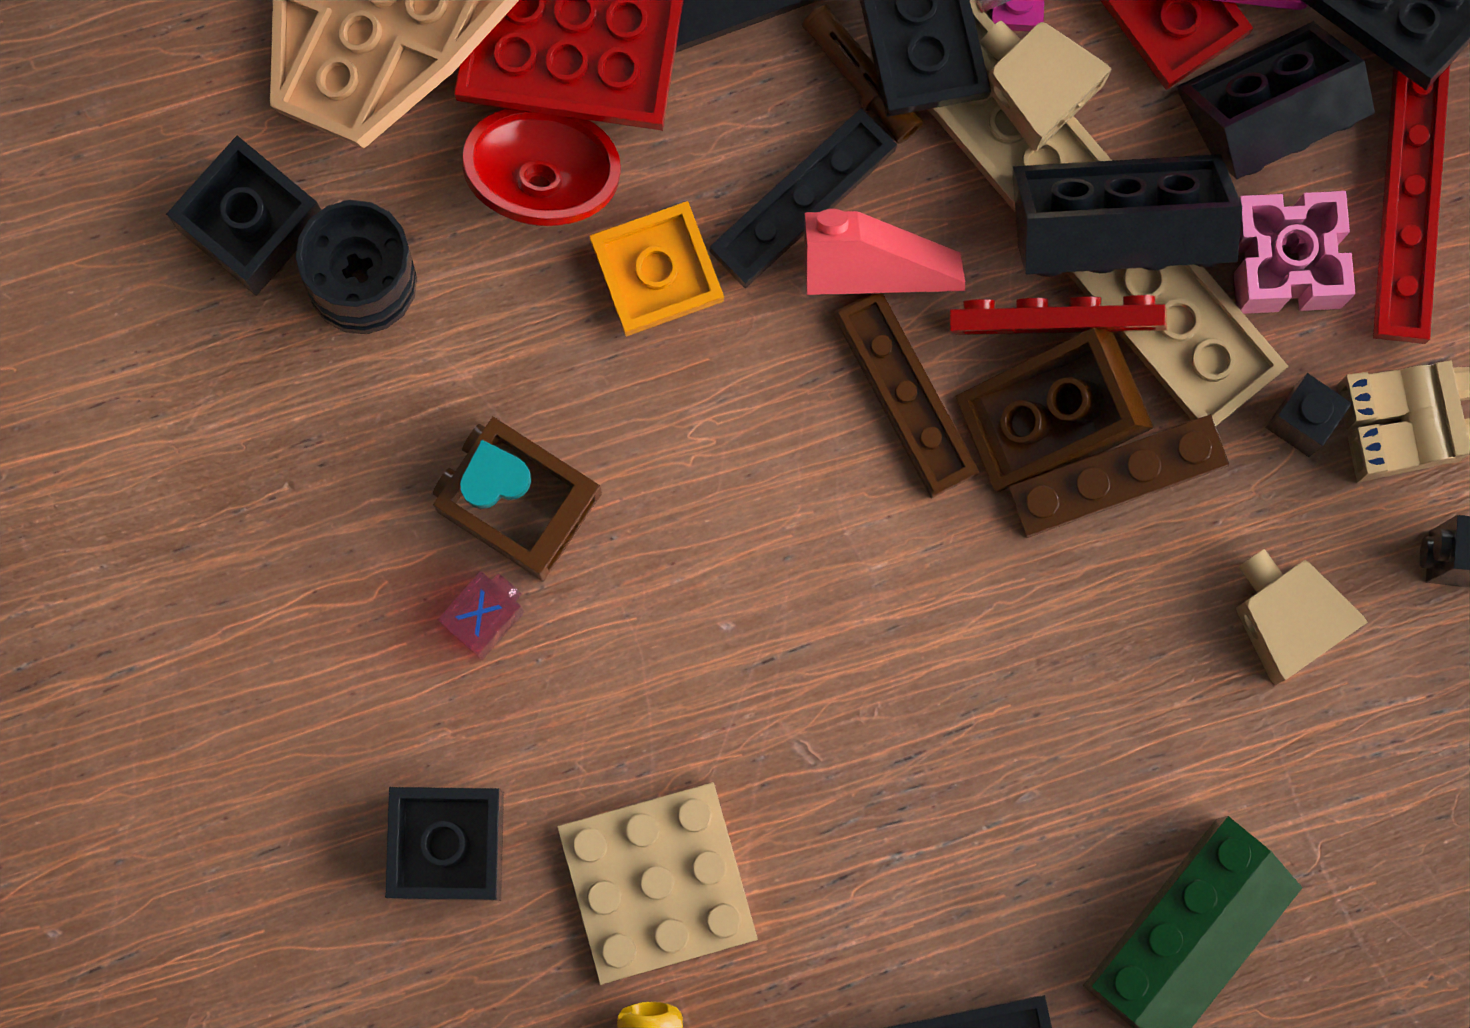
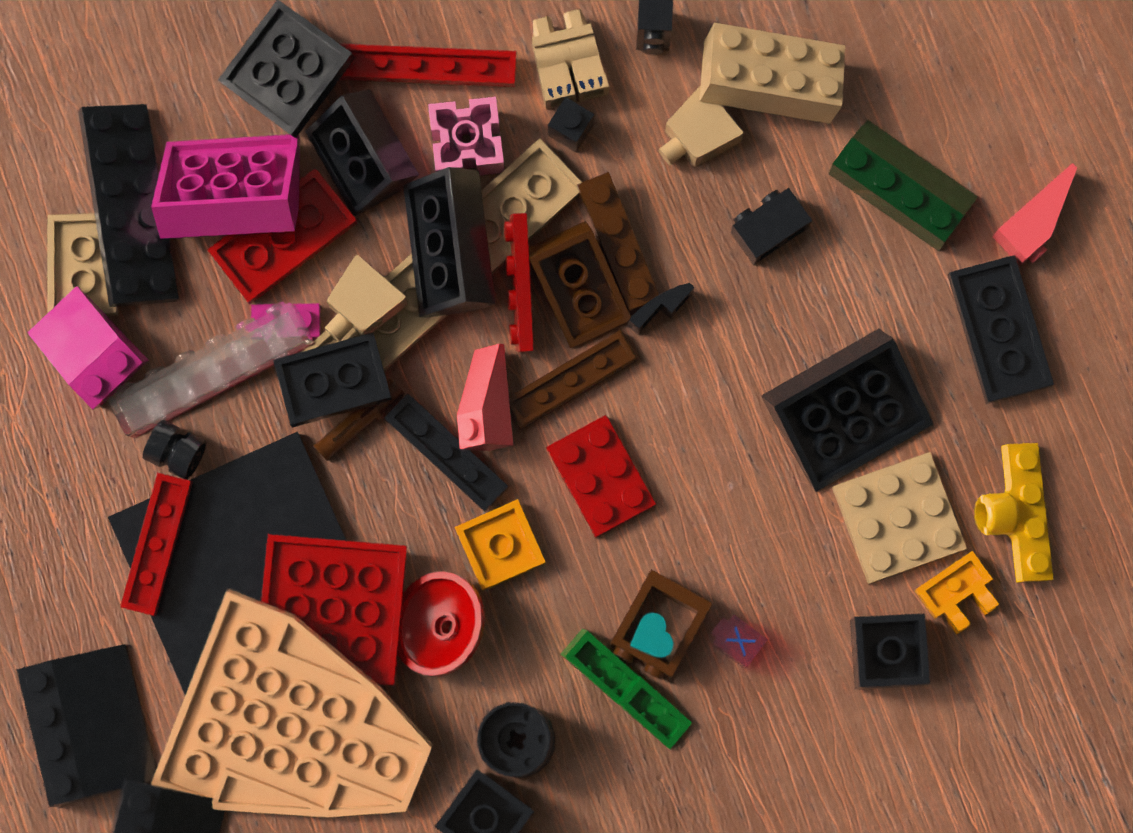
camera: 90 degrees left, 0 degrees up
(426, 442) = (626, 688): none -> green slope
(543, 959) = (954, 585): none -> light orange plate
(753, 427) = (600, 476): none -> red plate
(833, 814) = (848, 409): none -> black slope
(1020, 549) = (668, 302): none -> black slope
(1135, 715) = (770, 225): none -> black brick
(1381, 733) = (772, 73): none -> tan brick

